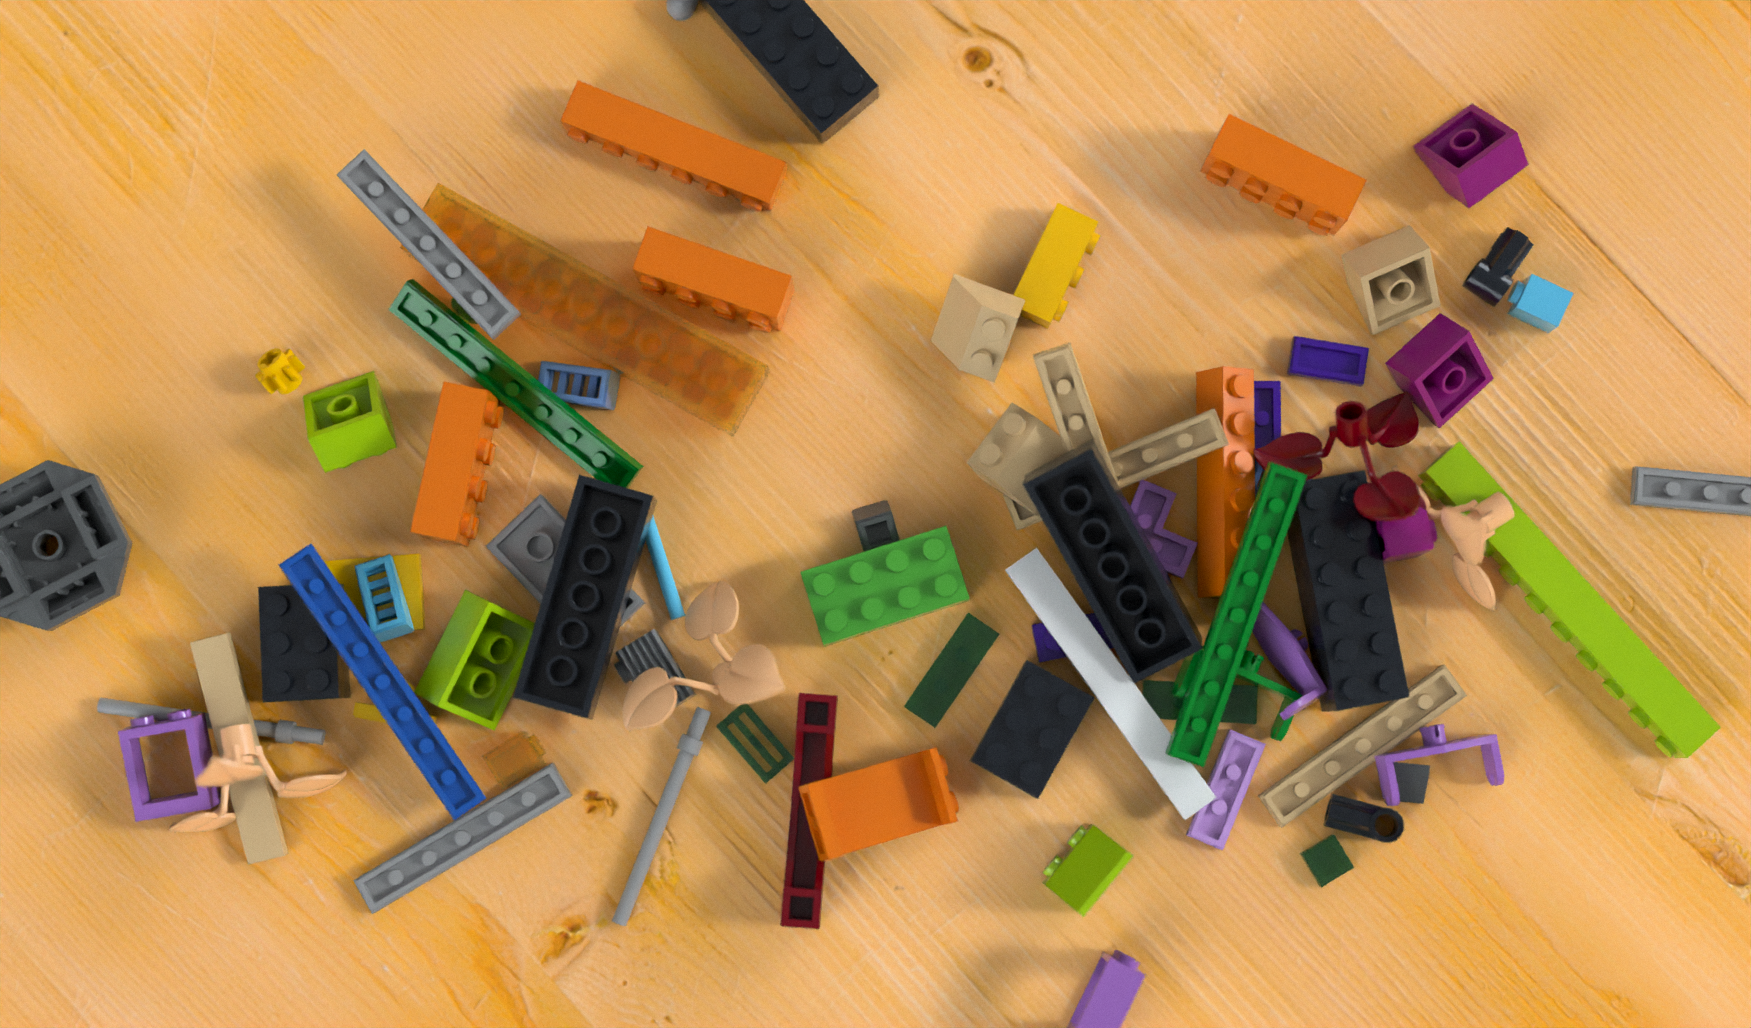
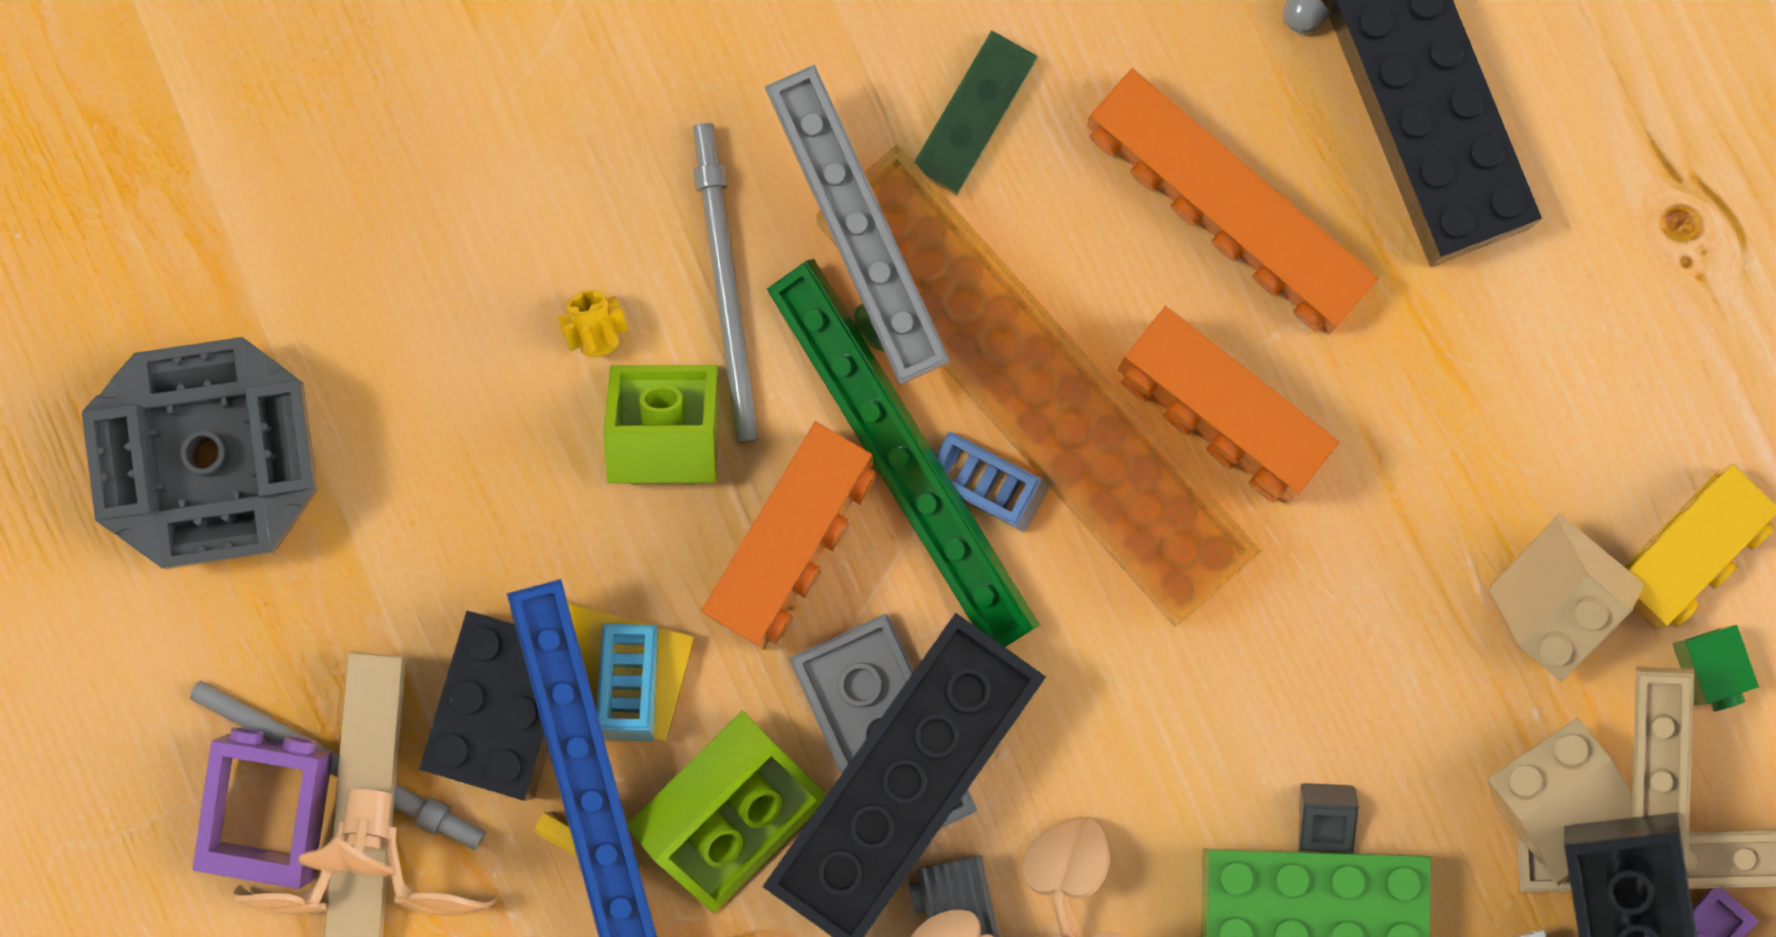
camera: 20 degrees right, 0 degrees up
(328, 251) = (711, 180): none -> light grey bar
(487, 146) = (975, 112): none -> clear green tile
(664, 572) = (1017, 782): medium azure bar -> none
(1094, 339) = (1719, 667): none -> green brick

